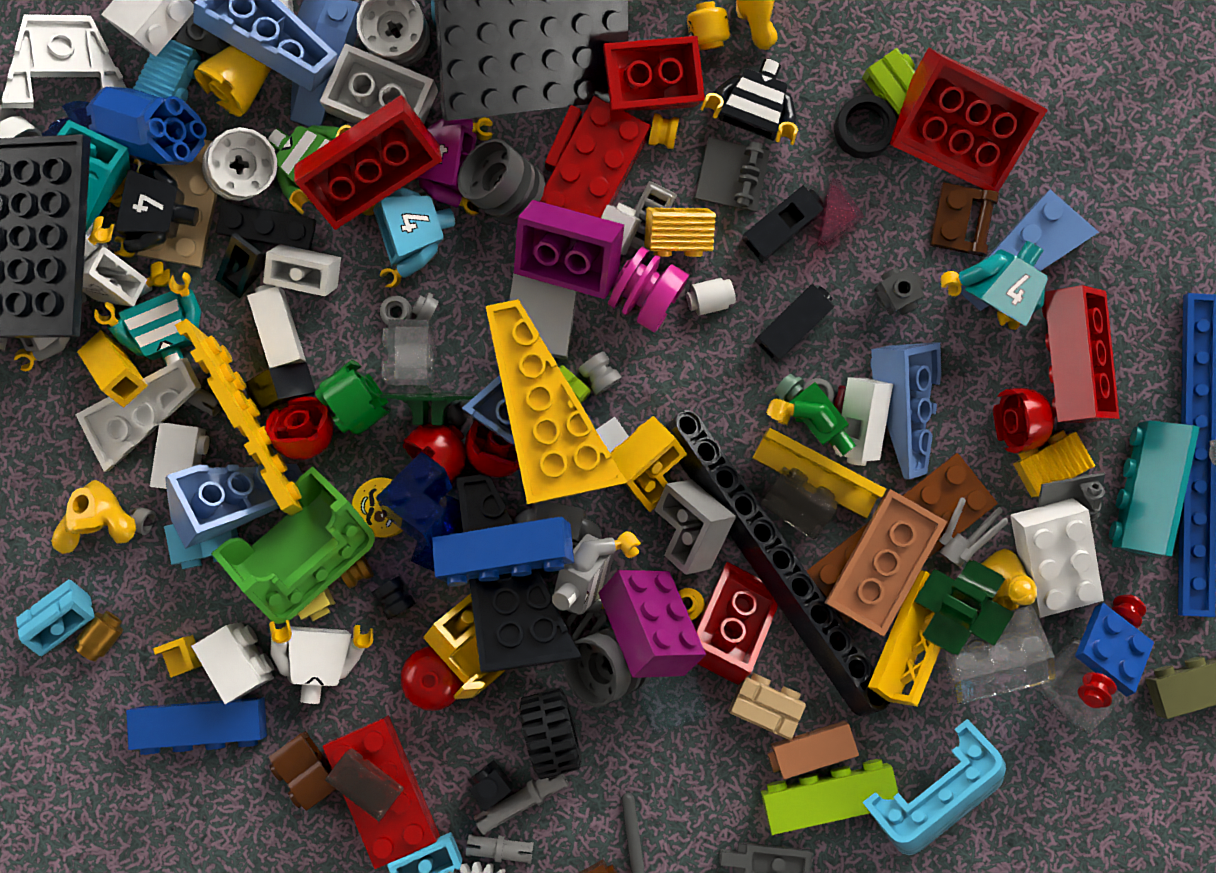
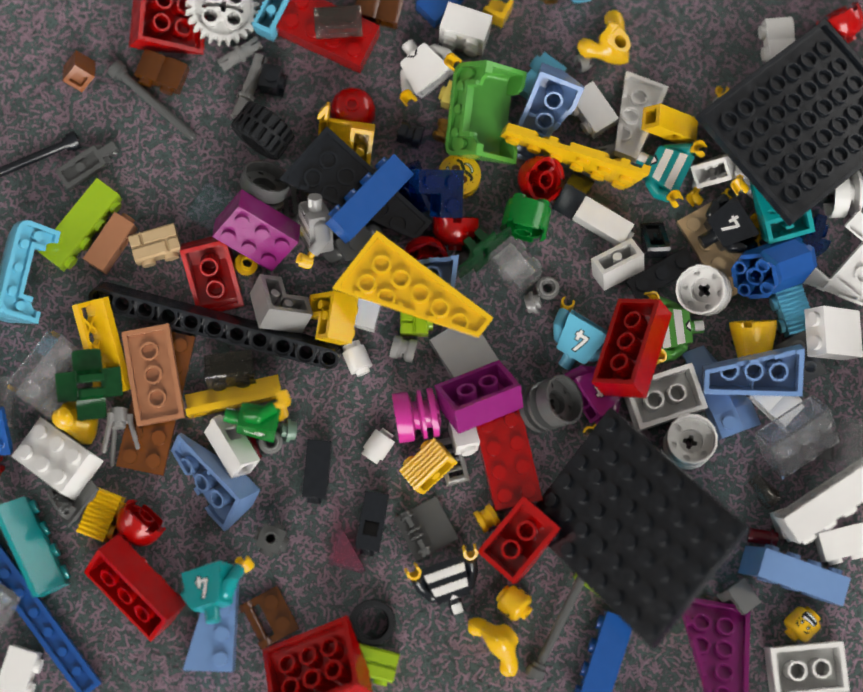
camera: 130 degrees right, 5 degrees down
(563, 137) = (540, 466): red tile -> none
(657, 402) = (357, 358): none -> white brick

